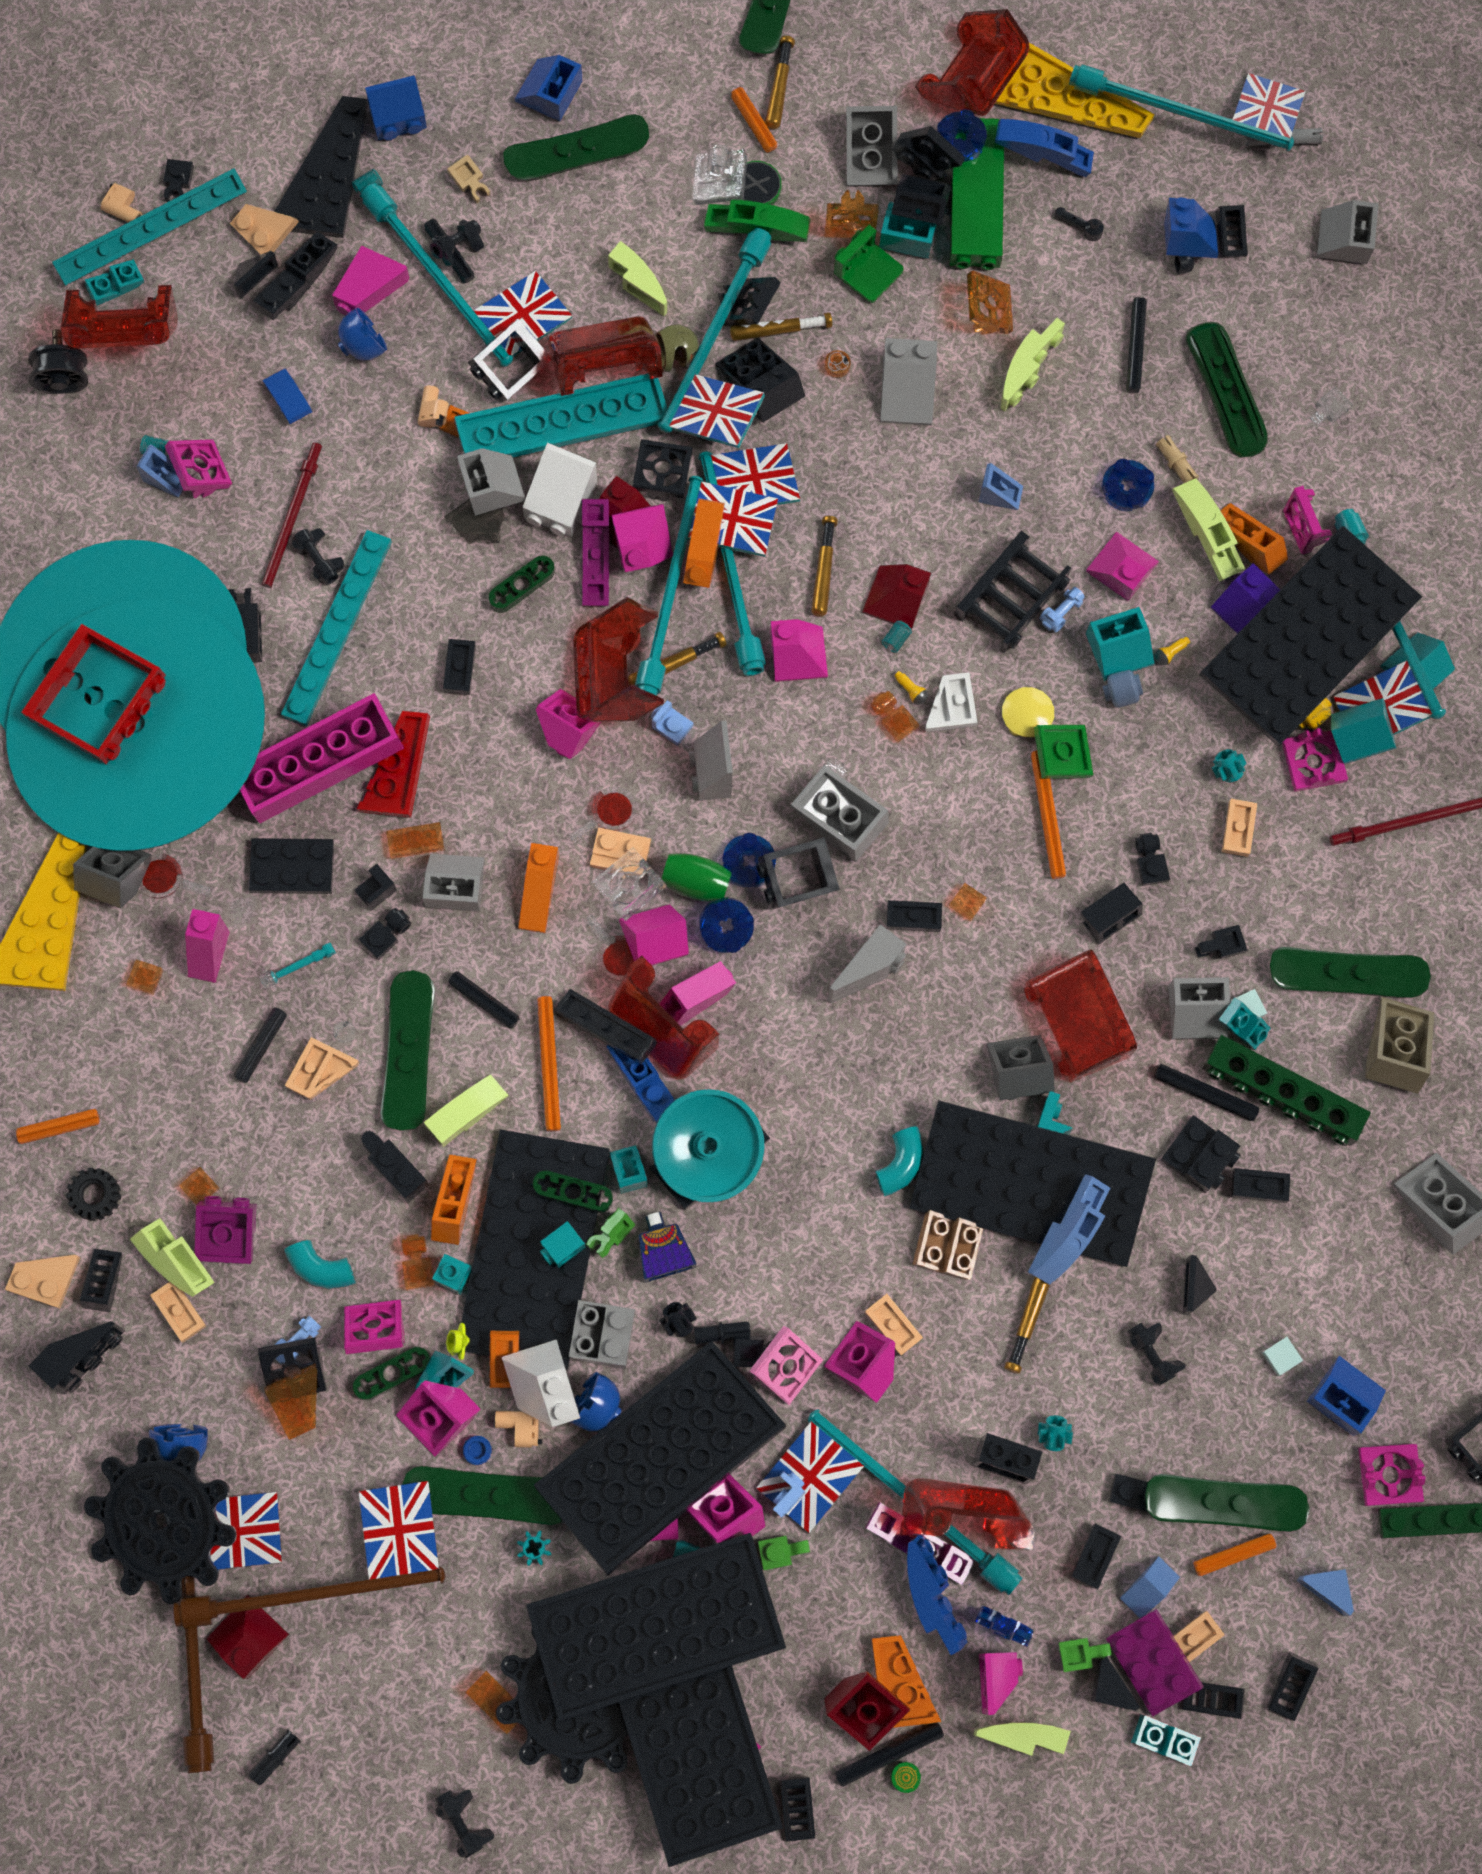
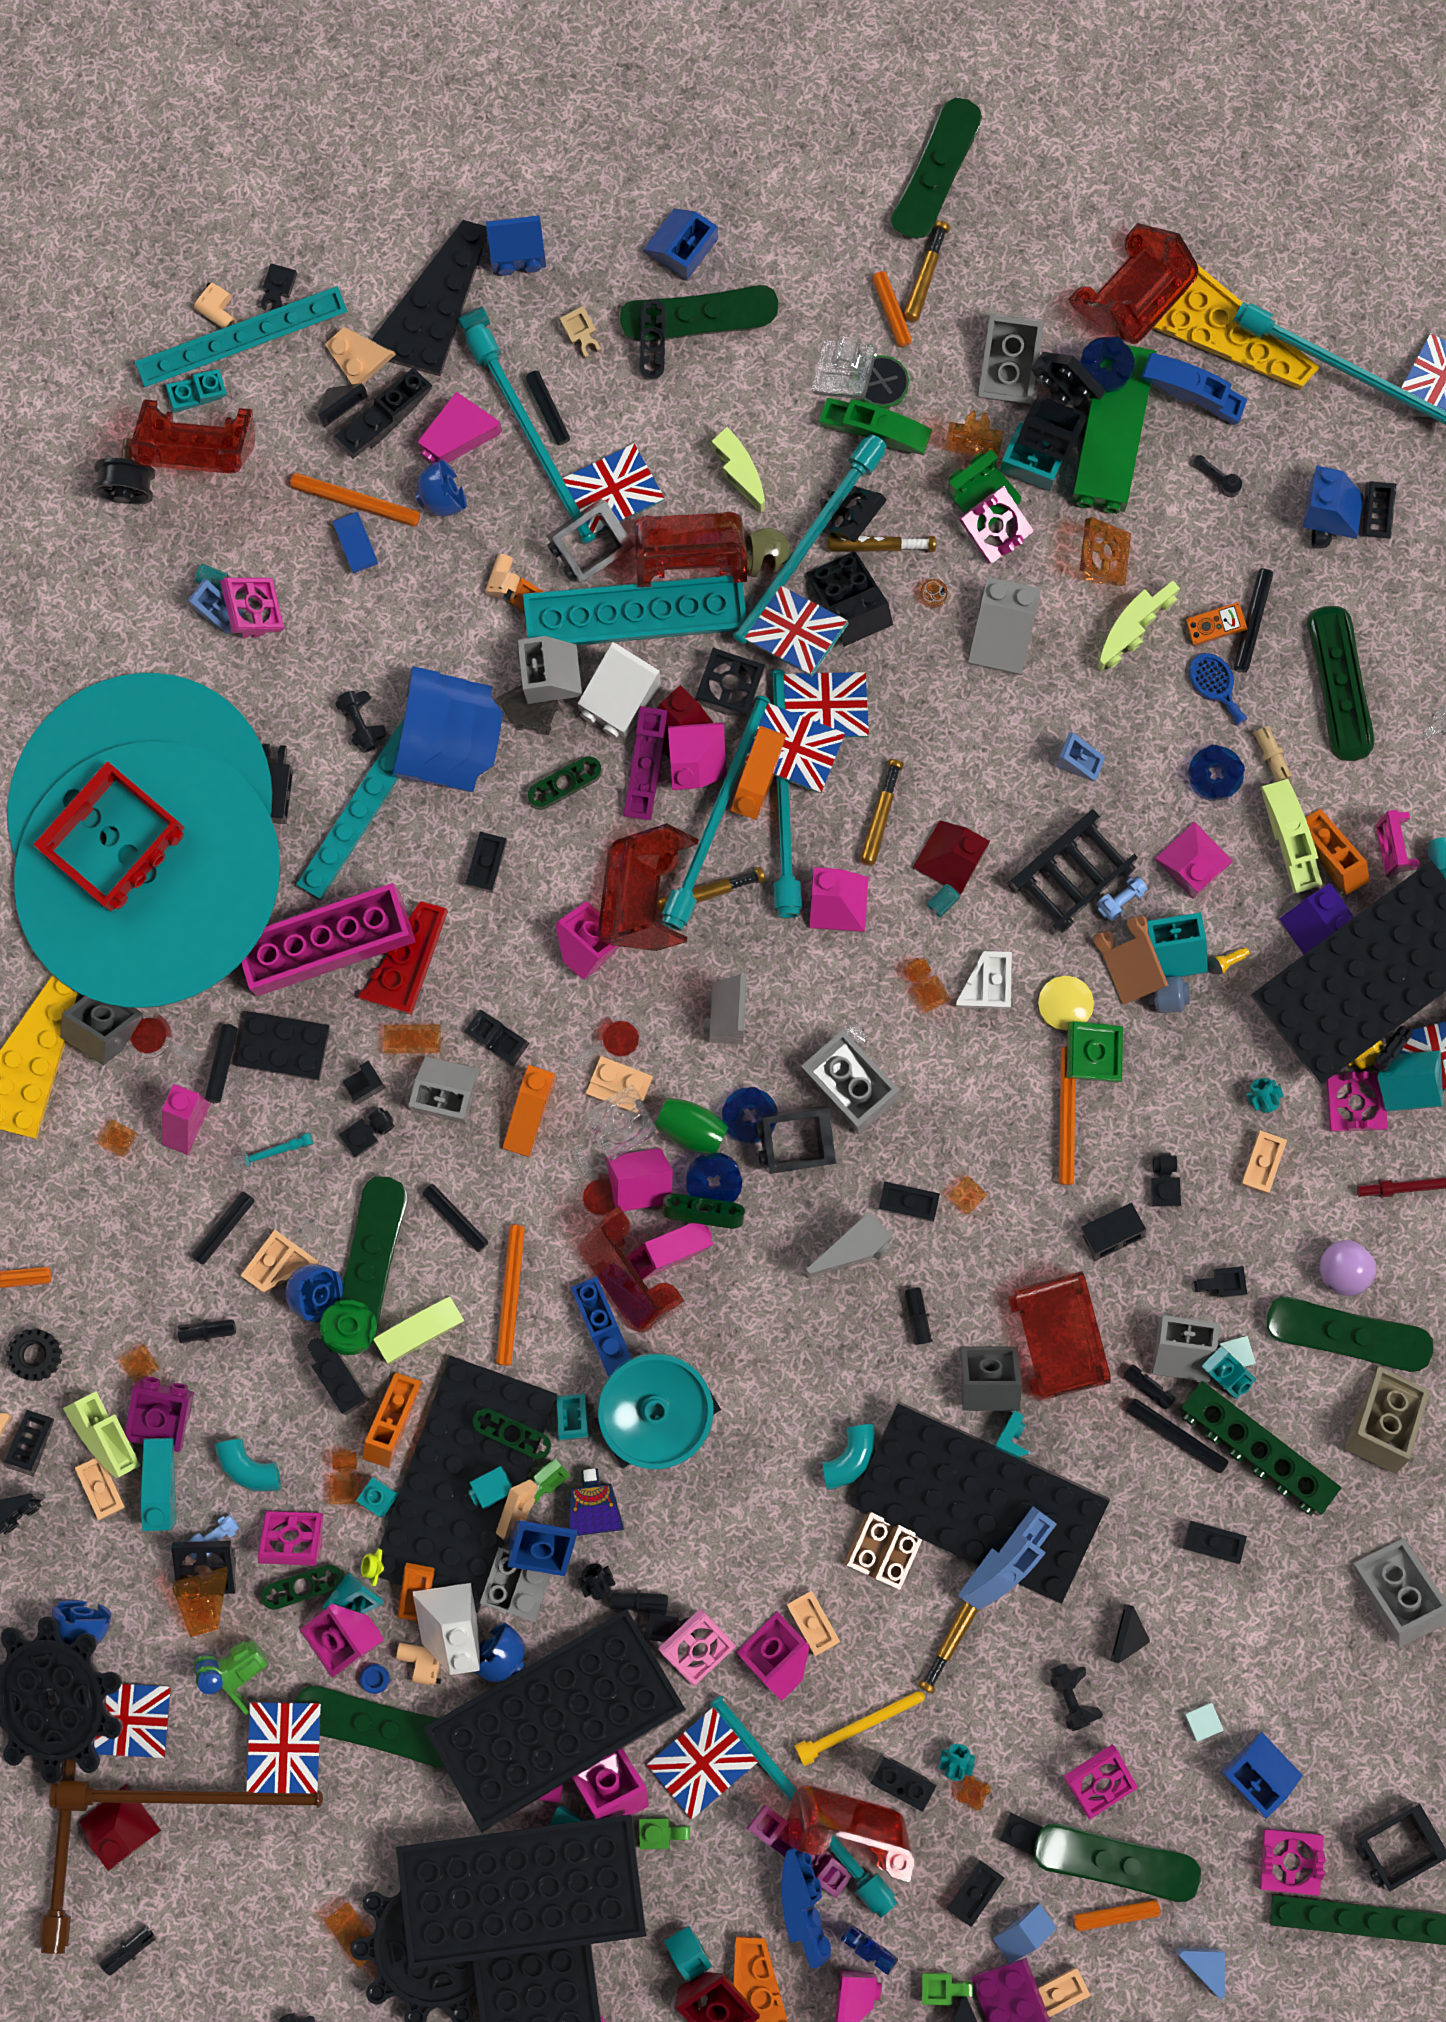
camera: 15 degrees right, 5 degrees up
(234, 890) = (221, 1063): none -> black axle
(235, 1297) = (158, 1485): none -> teal slope
(258, 1144) = (206, 1330): none -> black axle
(281, 358) = (355, 499): none -> orange axle
(307, 470) = (365, 625): dark red bar -> none
(336, 1464) = (230, 1671): none -> bright green piece
(358, 1088) = (312, 1291): none -> blue cylinder
(397, 1116) = (348, 1327): none -> green tile
(402, 552) = (447, 731): none -> blue slope
(468, 232) = (570, 391): black piece -> none
(495, 826) = (496, 1037): none -> black slope
(526, 1546) = (411, 1796): teal gear -> none
(532, 195) = (646, 319): none -> black beam
(589, 1261) = (516, 1507): none -> light nougat plate
(605, 1026) = (573, 1268): black tile -> none
(620, 1289) = (541, 1547): none -> blue slope
(670, 723) = (694, 957): light blue bracket -> none
(721, 953) = (719, 1213): none -> dark green beam
(786, 1500) = (674, 1784): light blue bracket -> none
(828, 1662) = (688, 1953): none -> teal brick
(860, 294) = (1022, 527): none -> piece
(910, 1448) = (808, 1751): none -> yellow piece
(917, 694) = (954, 965): yellow piece -> none
(942, 1021) = (918, 1316): none -> black axle
(1069, 1465) = (970, 1784): none -> clear orange plate
(1084, 666) = (1134, 963): none -> nougat flag
(1103, 352) = (1216, 624): none -> orange tile
(1122, 416) = (1232, 707): none -> blue piece
(1171, 1051) = (1149, 1387): none -> black axle
(1201, 1154) = (1160, 1499): black plate -> none
(1219, 1429) = (1096, 1805): none -> dark pink piece
(1336, 910) = (1347, 1268): none -> lavender helmet
(1339, 703) = (1392, 1048): none -> black axle

